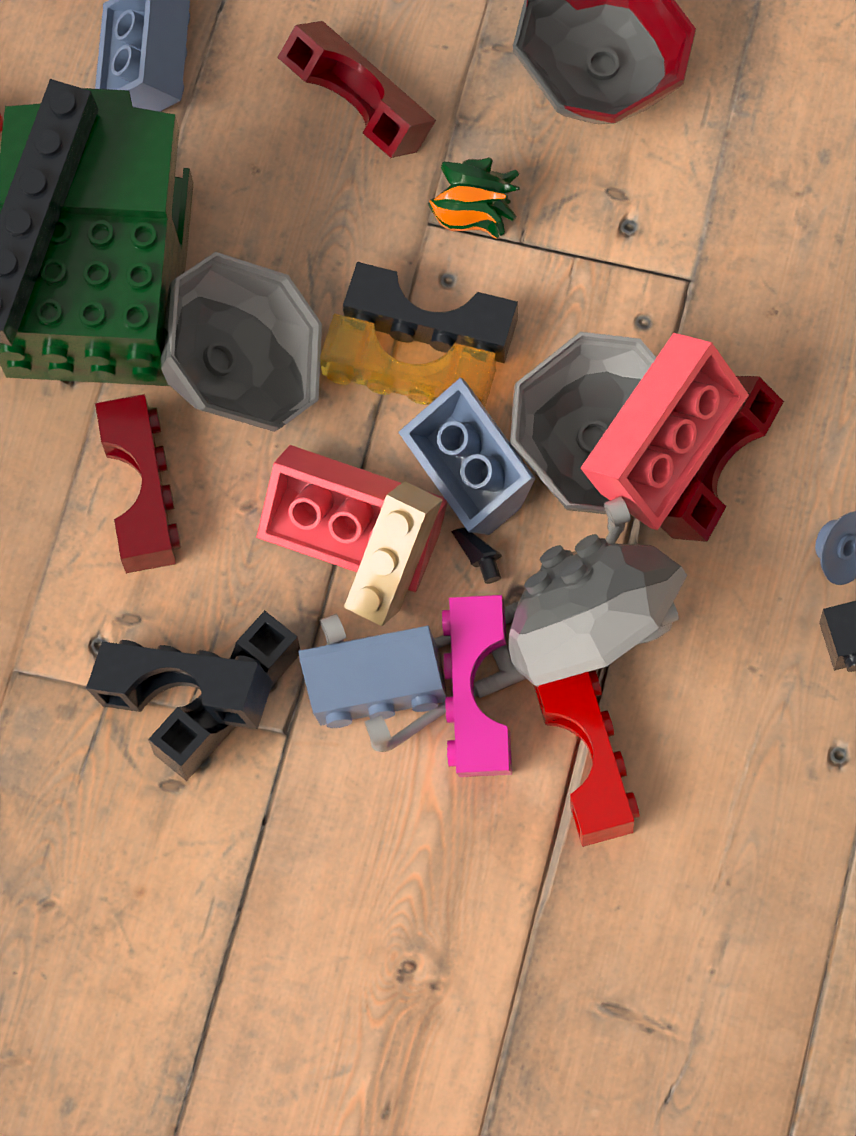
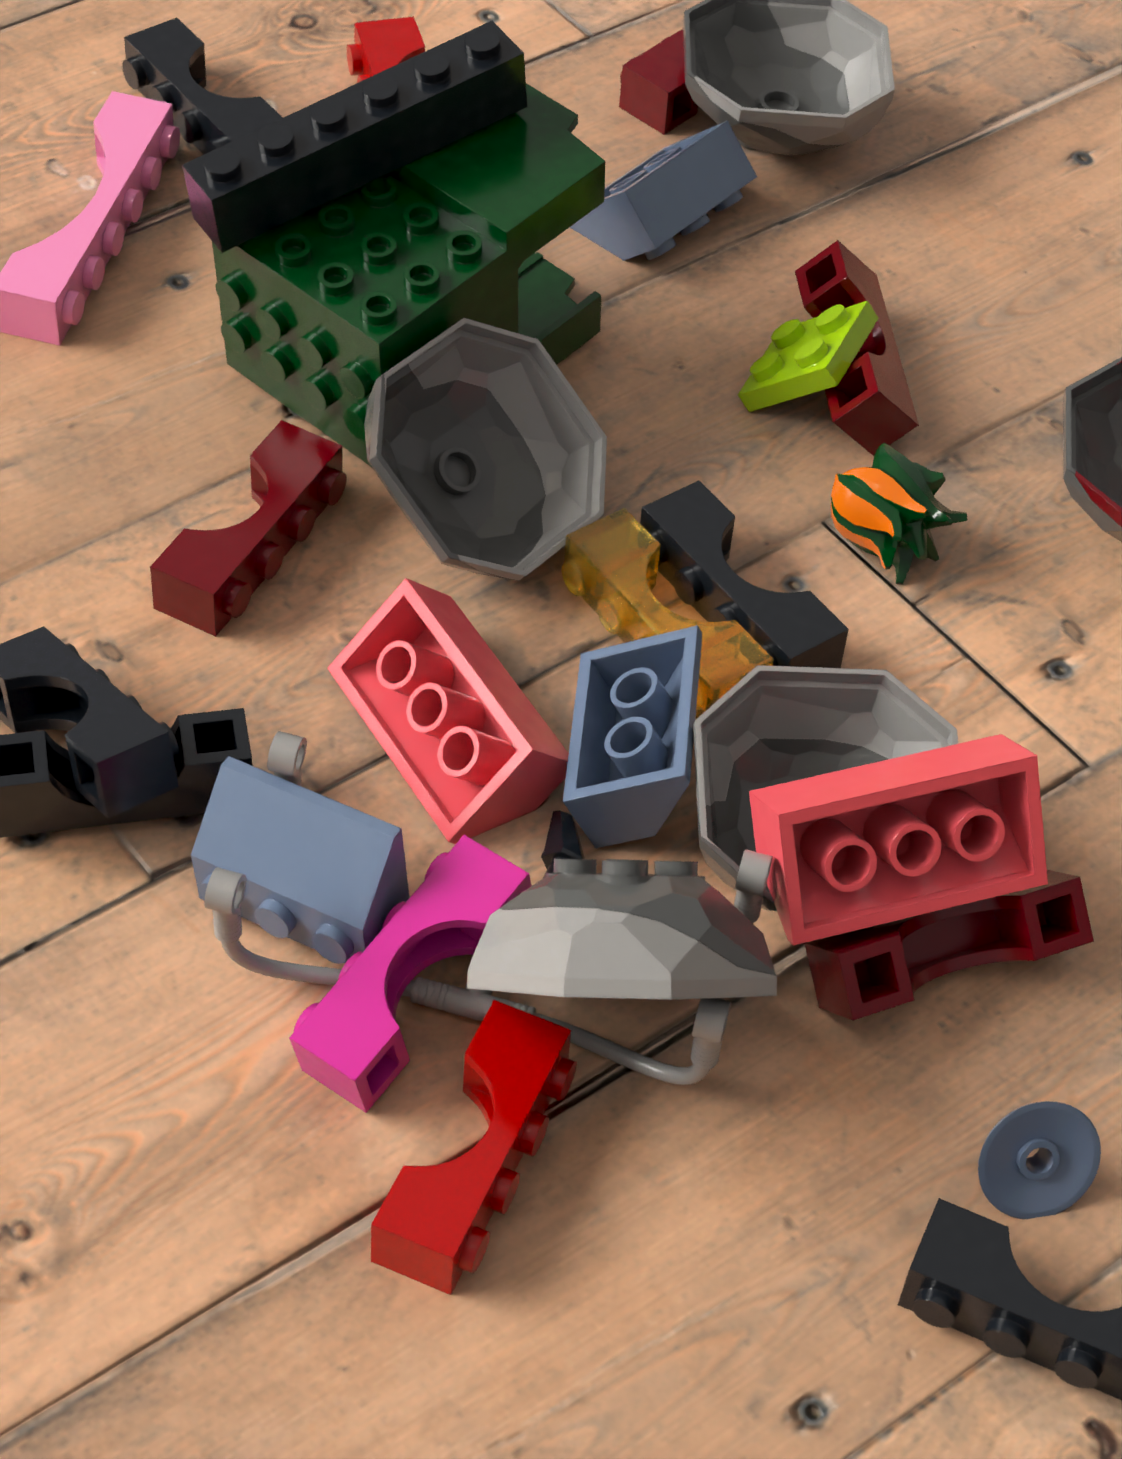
camera: 30 degrees right, 20 degrees down
(337, 118) = (808, 355): none -> lime plate
(393, 553) = (450, 751): tan brick -> none

